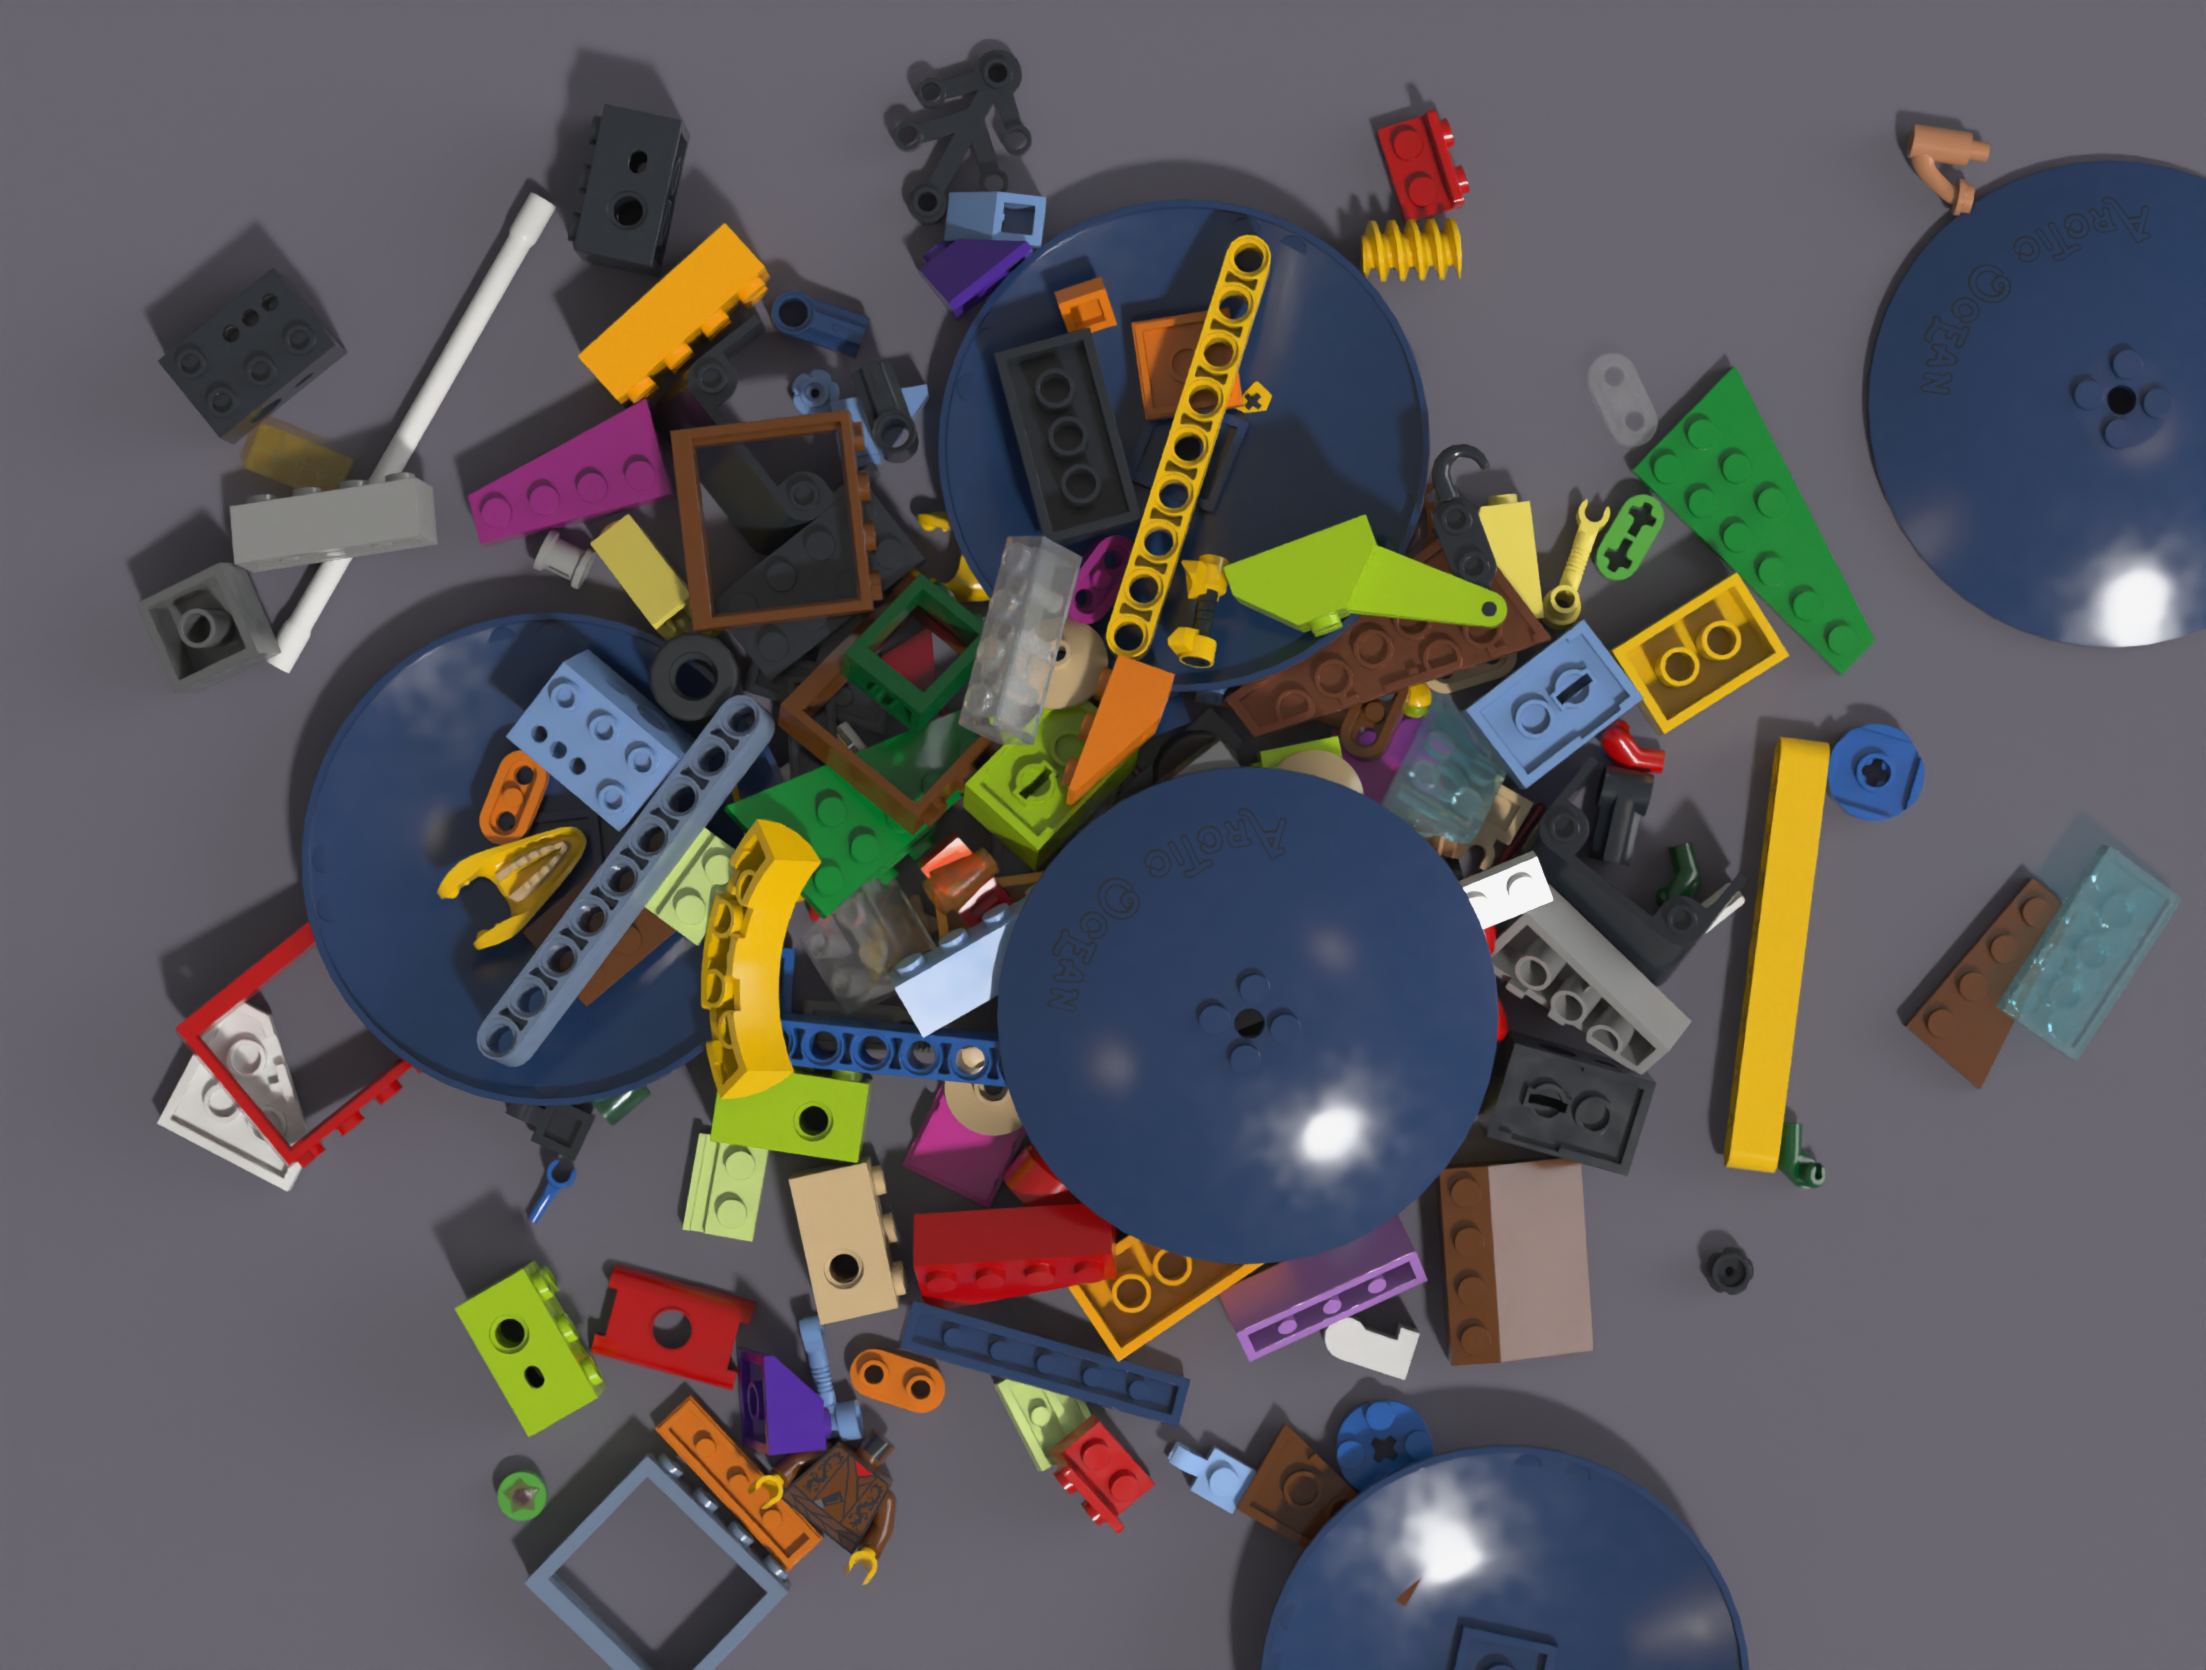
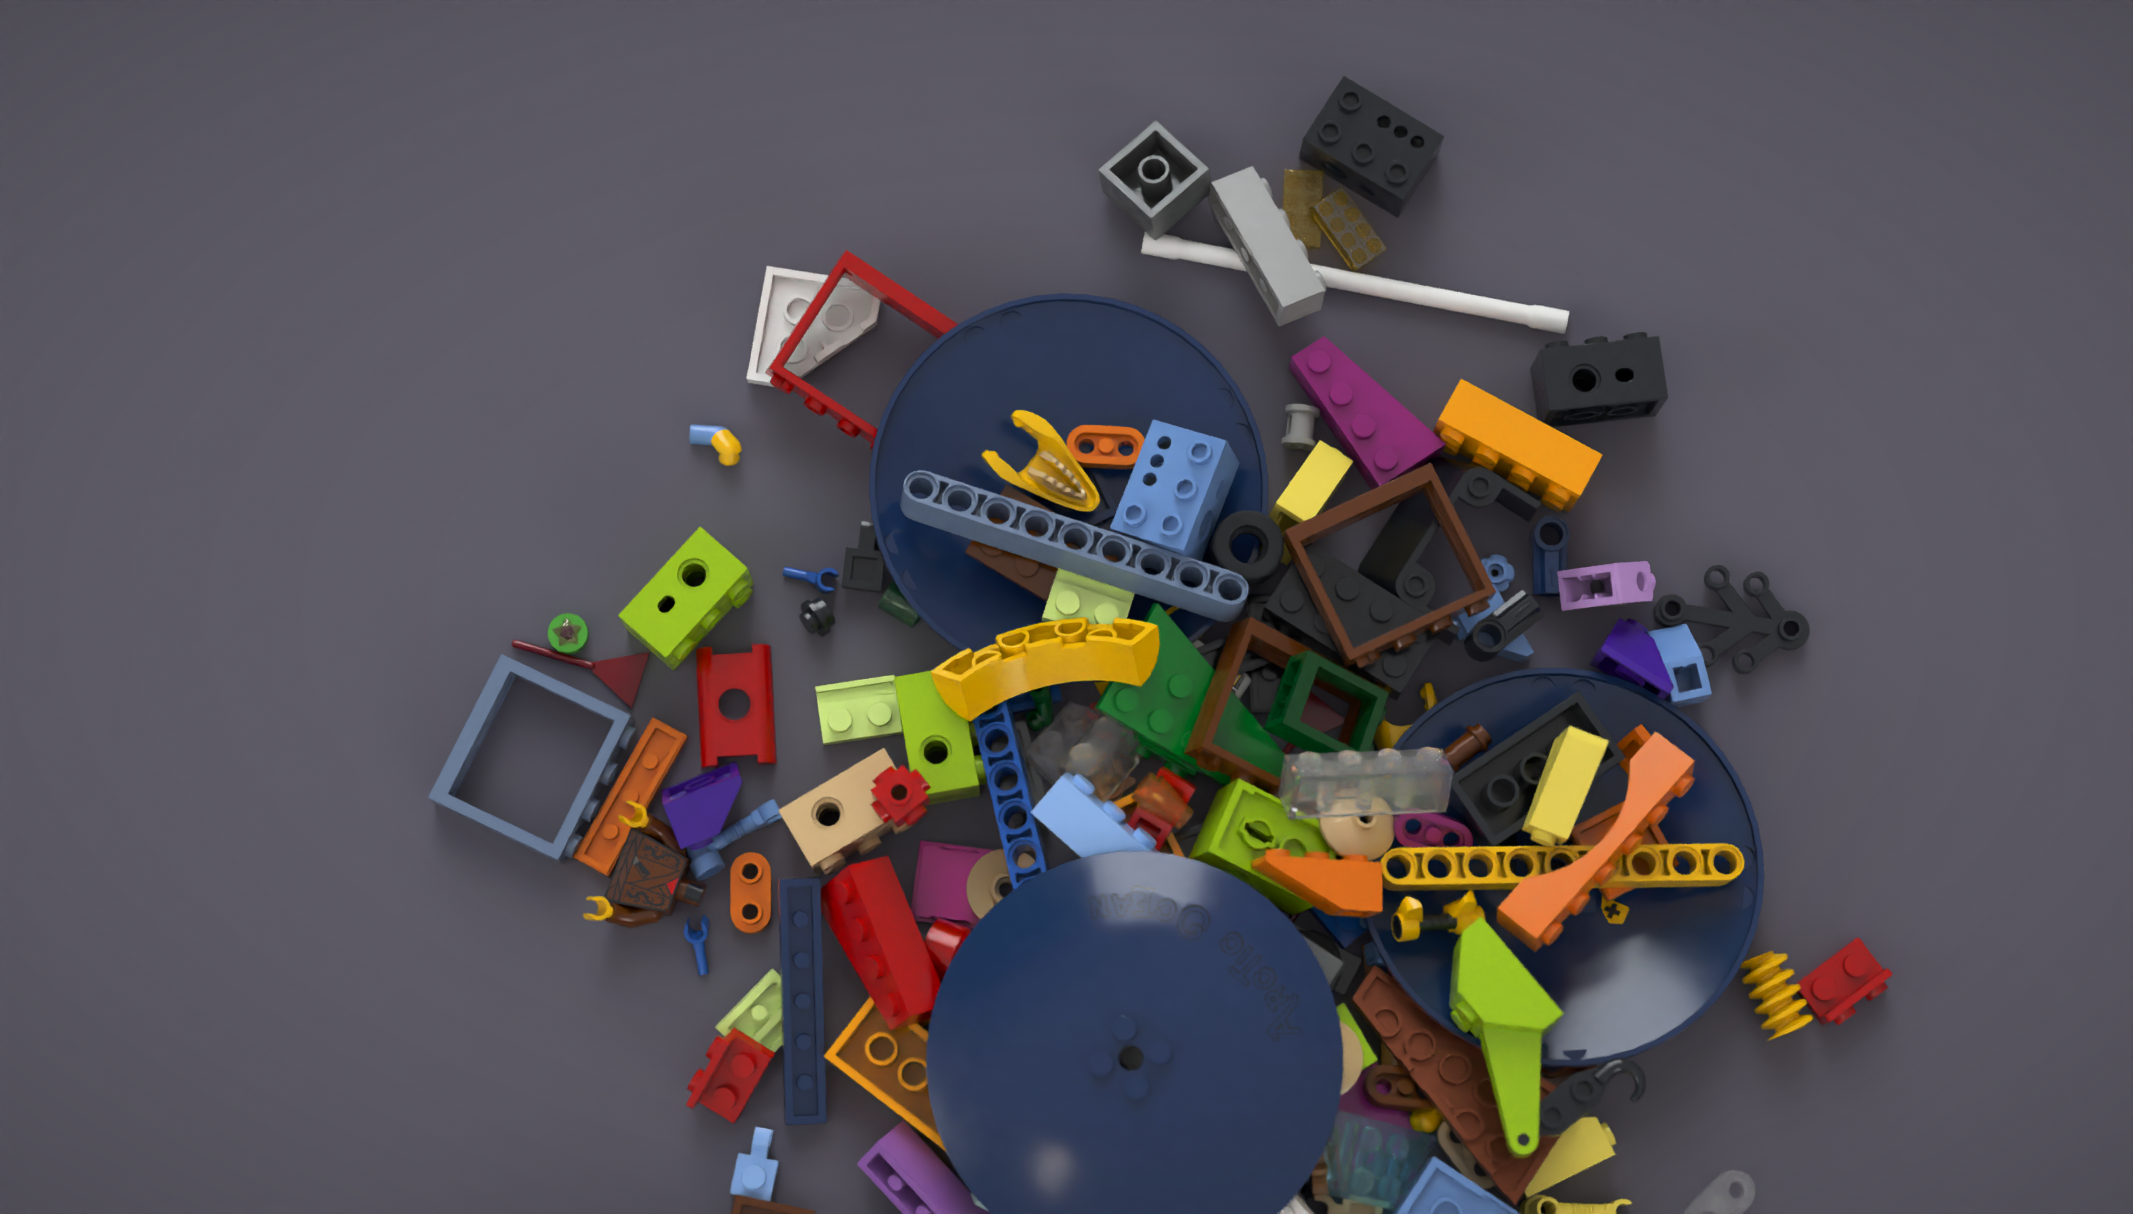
camera: 65 degrees right, 10 degrees down
(343, 418) = (1347, 229): none -> clear yellow tile
(349, 1244) = (720, 439): none -> arm
(589, 1450) = (619, 674): none -> dark red piece
(601, 1201) = (816, 617): none -> black plate
(805, 977) = (1043, 714): none -> dark green arm
(853, 1162) = (906, 810): none -> red brick
(883, 248) = (1622, 585): none -> lavender torso
(930, 1458) = (698, 939): none -> blue hand
(1012, 504) = (1467, 746): none -> reddish brown pin
(1103, 415) = (1563, 786): none -> light yellow slope
(1228, 487) = (1544, 901): none -> orange arch

